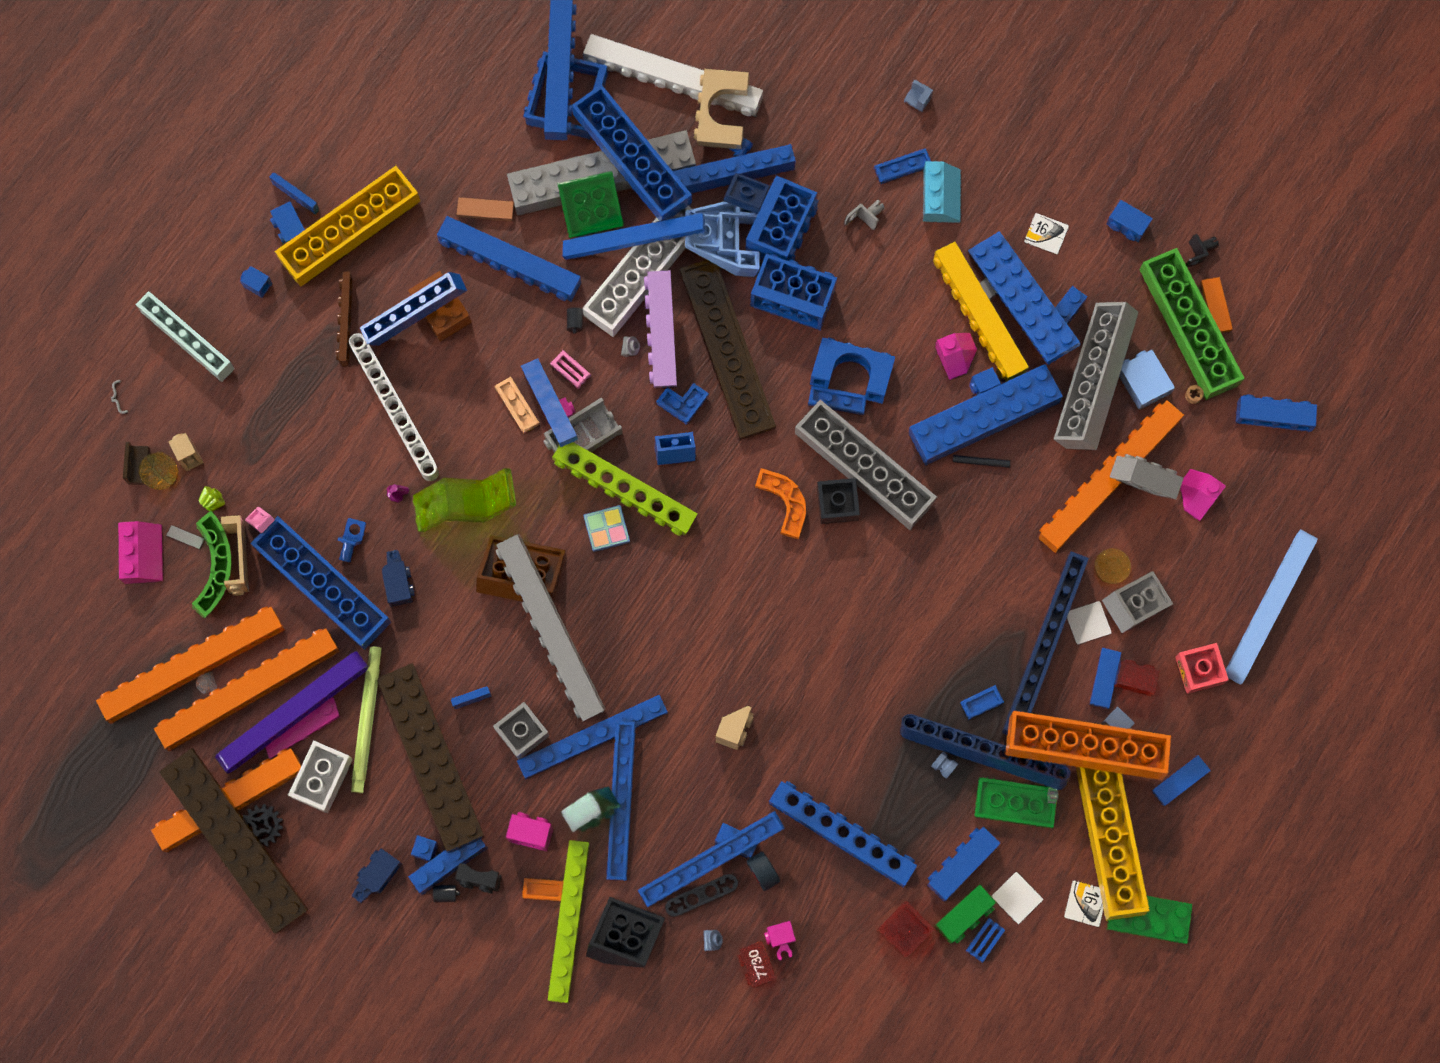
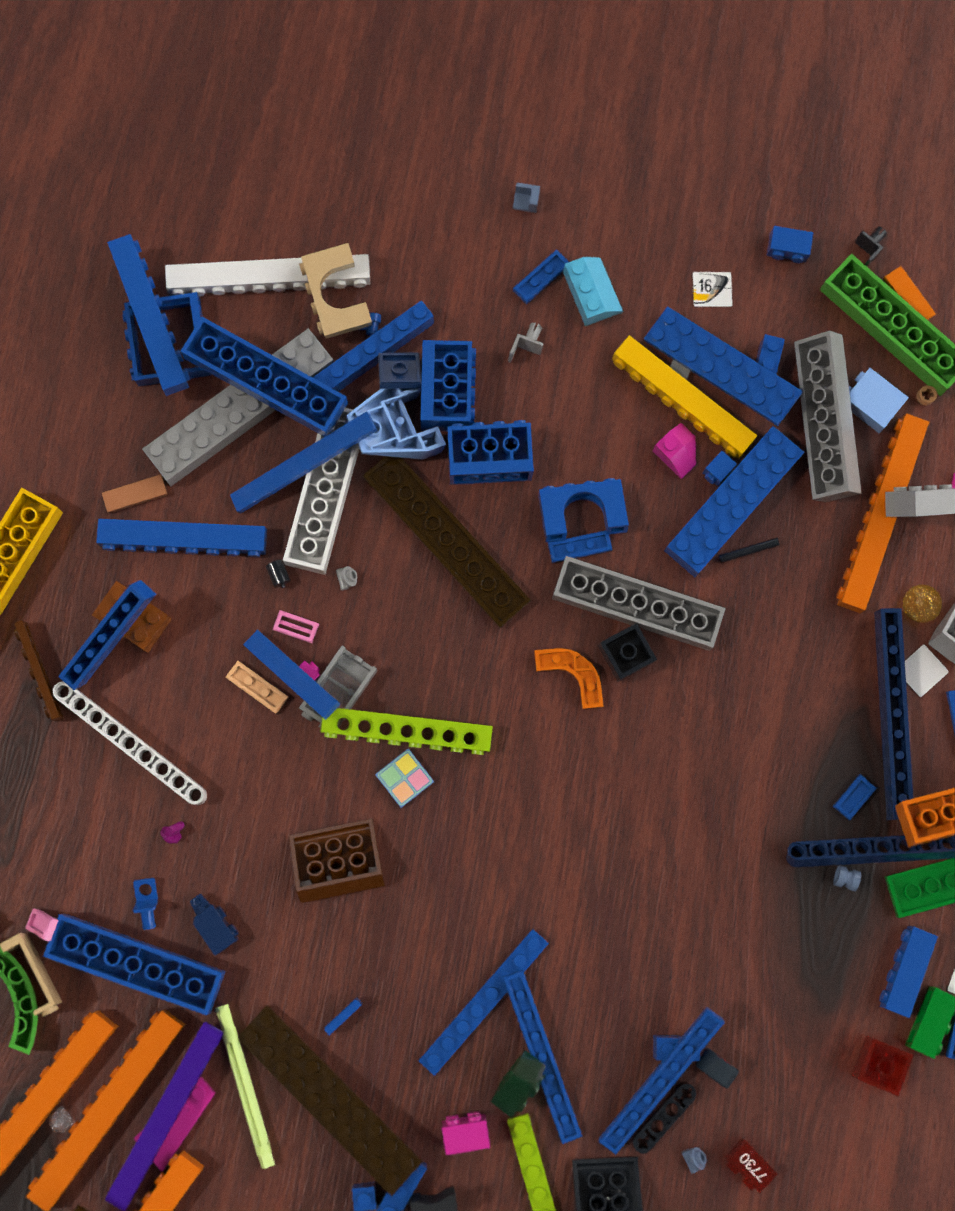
camera: 30 degrees left, 5 degrees up
(320, 776) = (224, 1170): white brick -> none
(464, 500) = (247, 814): clear neon green bracket -> none
(521, 730) = (410, 1030): light grey brick -> none
(542, 889) = (502, 1182): orange tile -> none
(550, 626) = (395, 911): light grey brick -> none
(590, 204) = (243, 446): green plate -> none
(662, 330) = (374, 547): lavender brick -> none
(675, 448) = (439, 666): blue brick -> none
(683, 407) = (430, 618): blue plate -> none
(733, 726) = (624, 935): tan slope -> none
(781, 936) = (761, 1126): dark pink brick -> none
(830, 833) = (853, 1008): blue brick -> none

